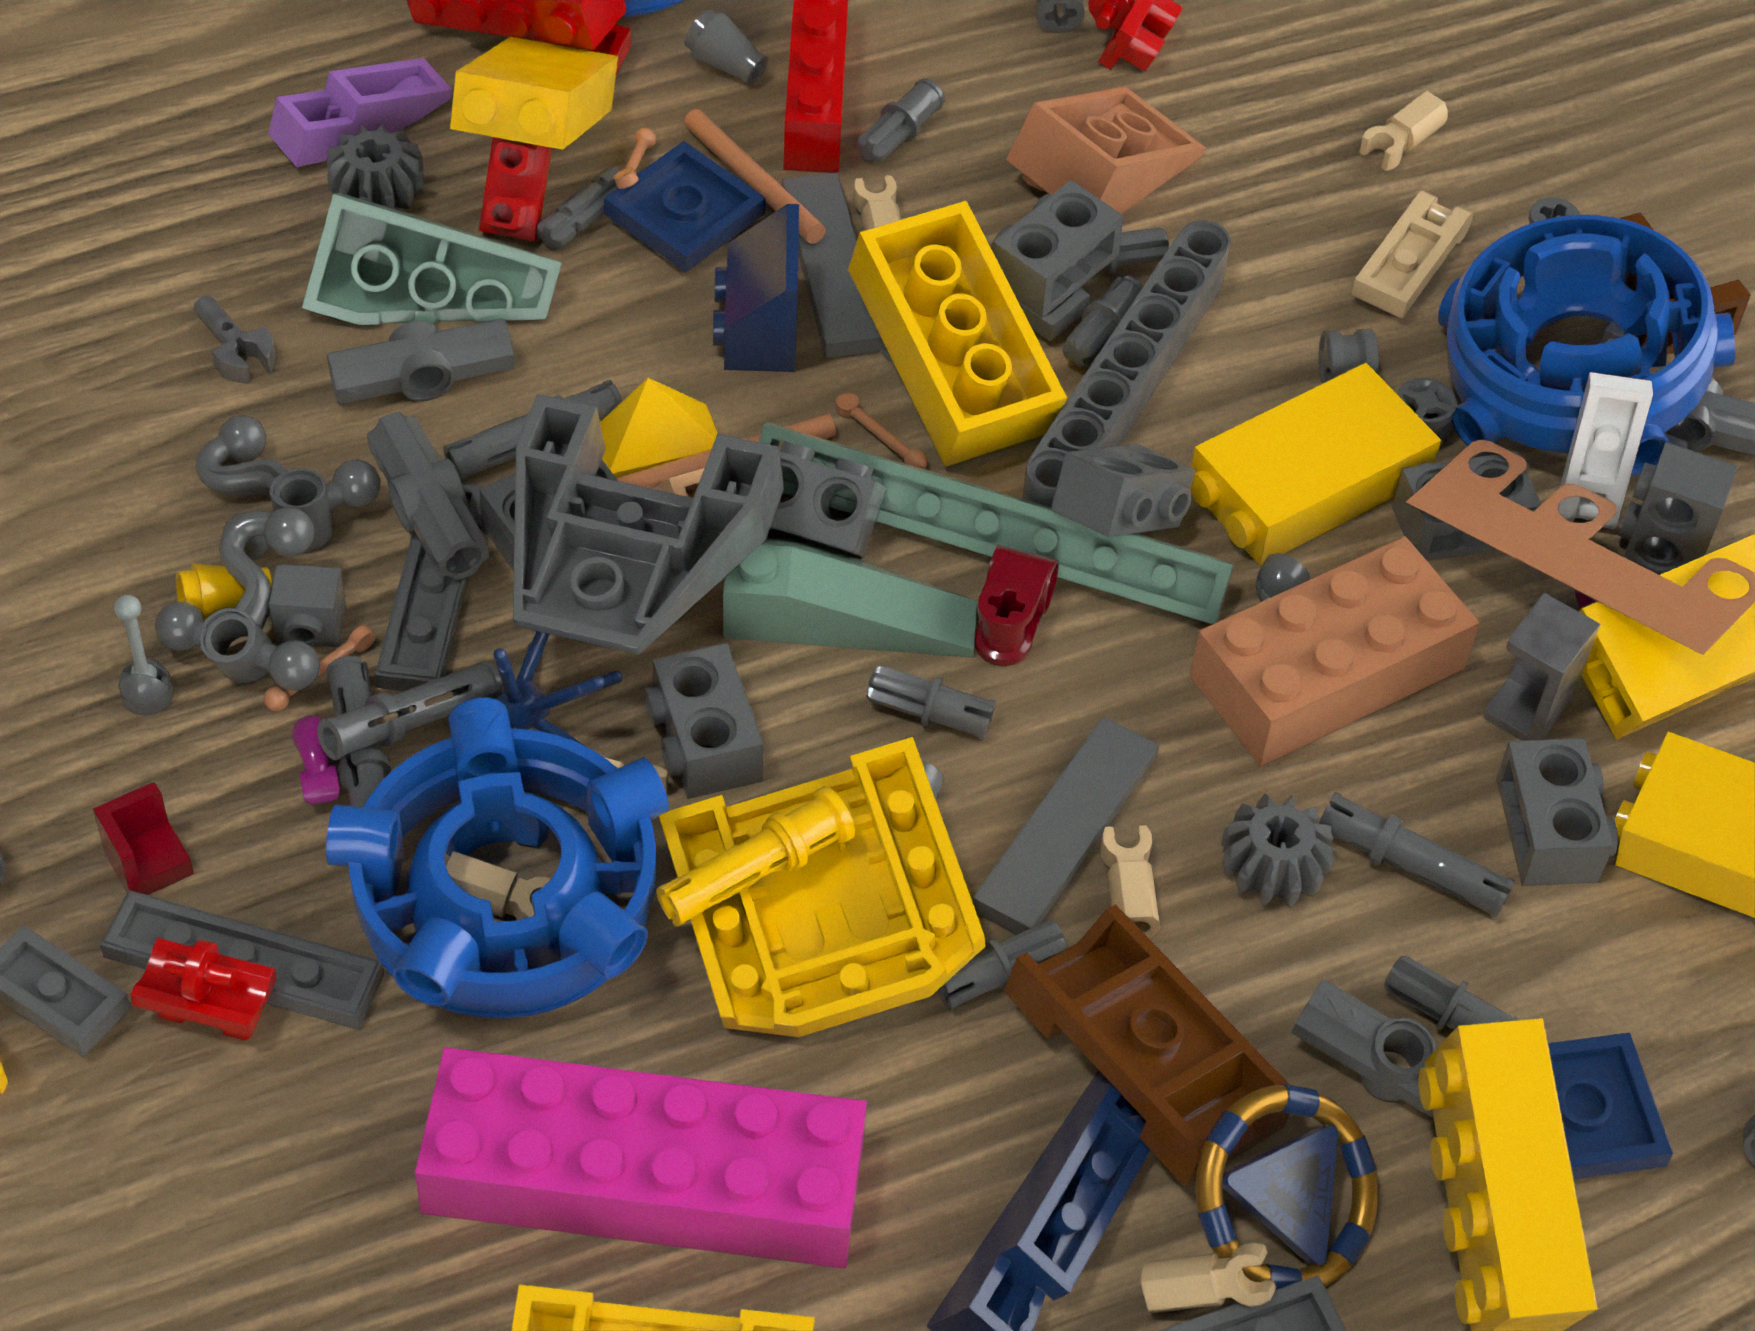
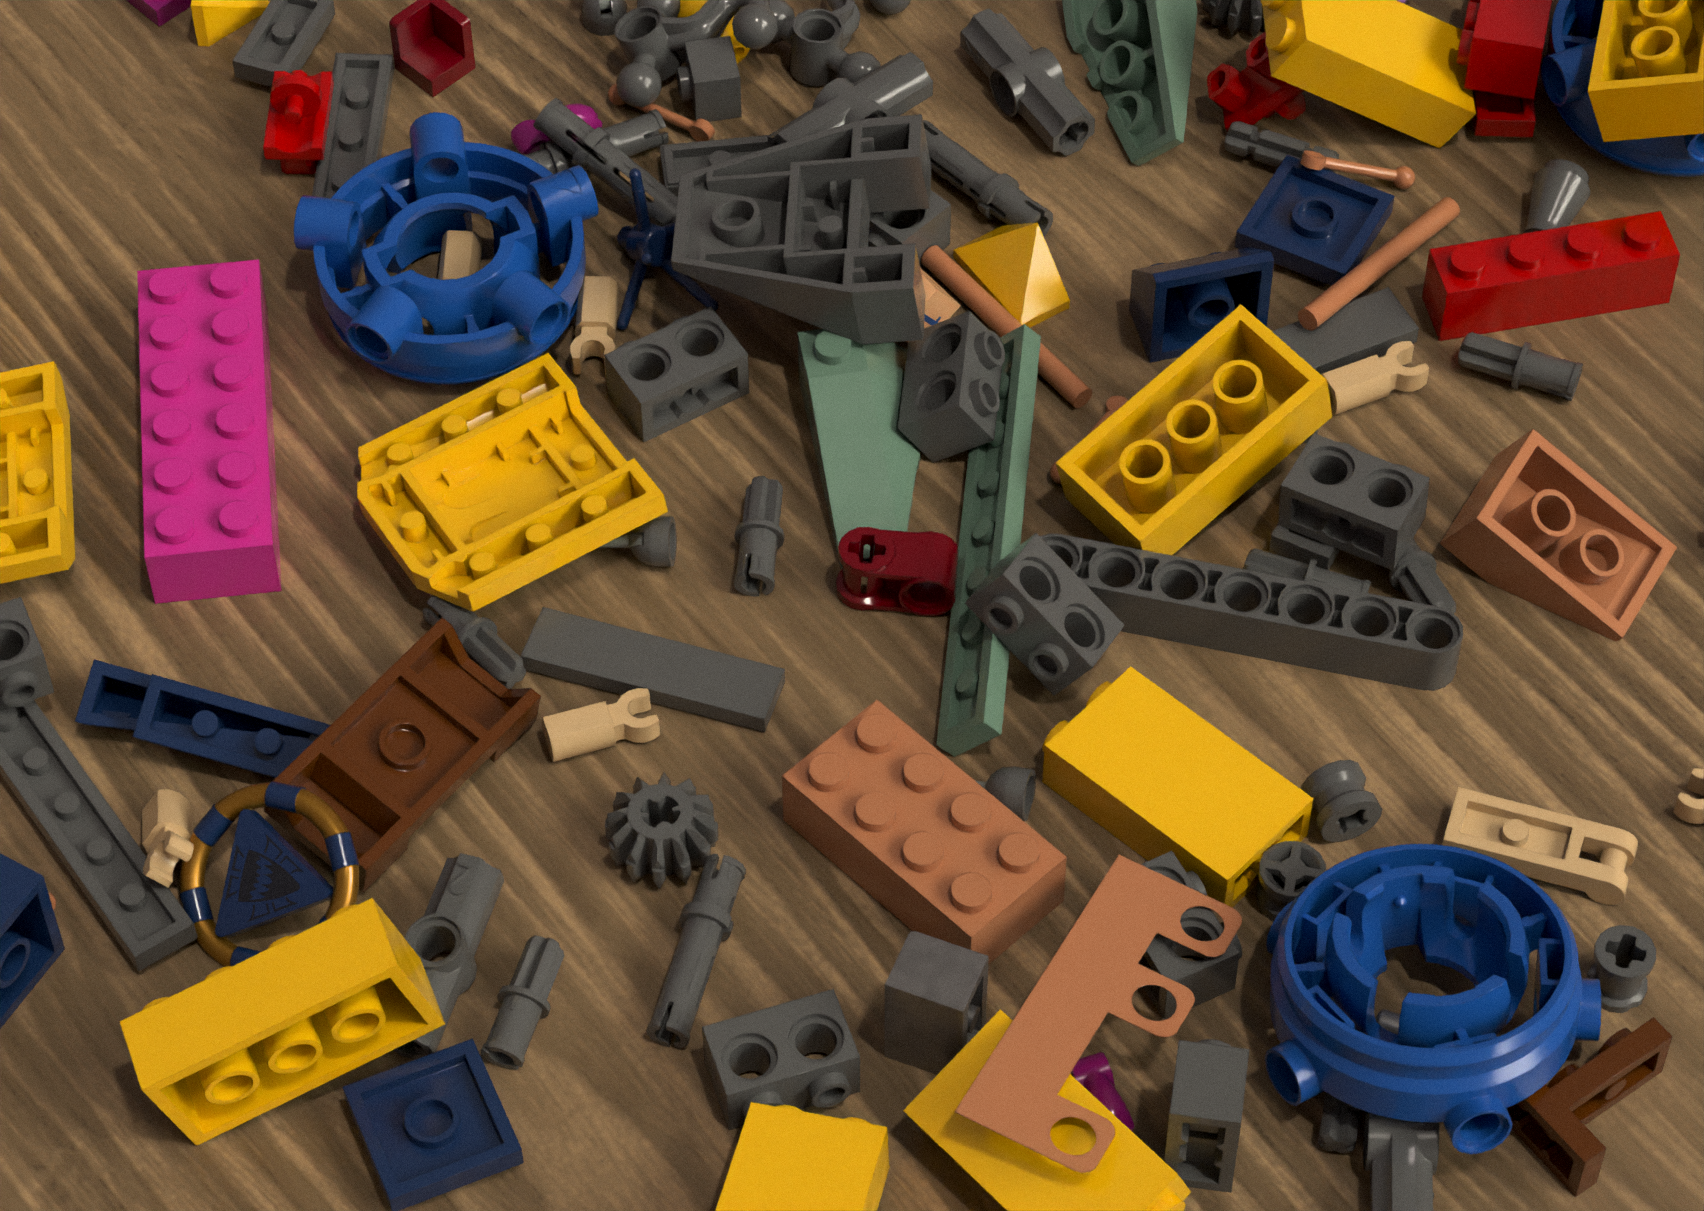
camera: 80 degrees right, 0 degrees up
(781, 844) = (525, 432): yellow pin -> none
(1605, 443) = (1254, 998): white plate -> none

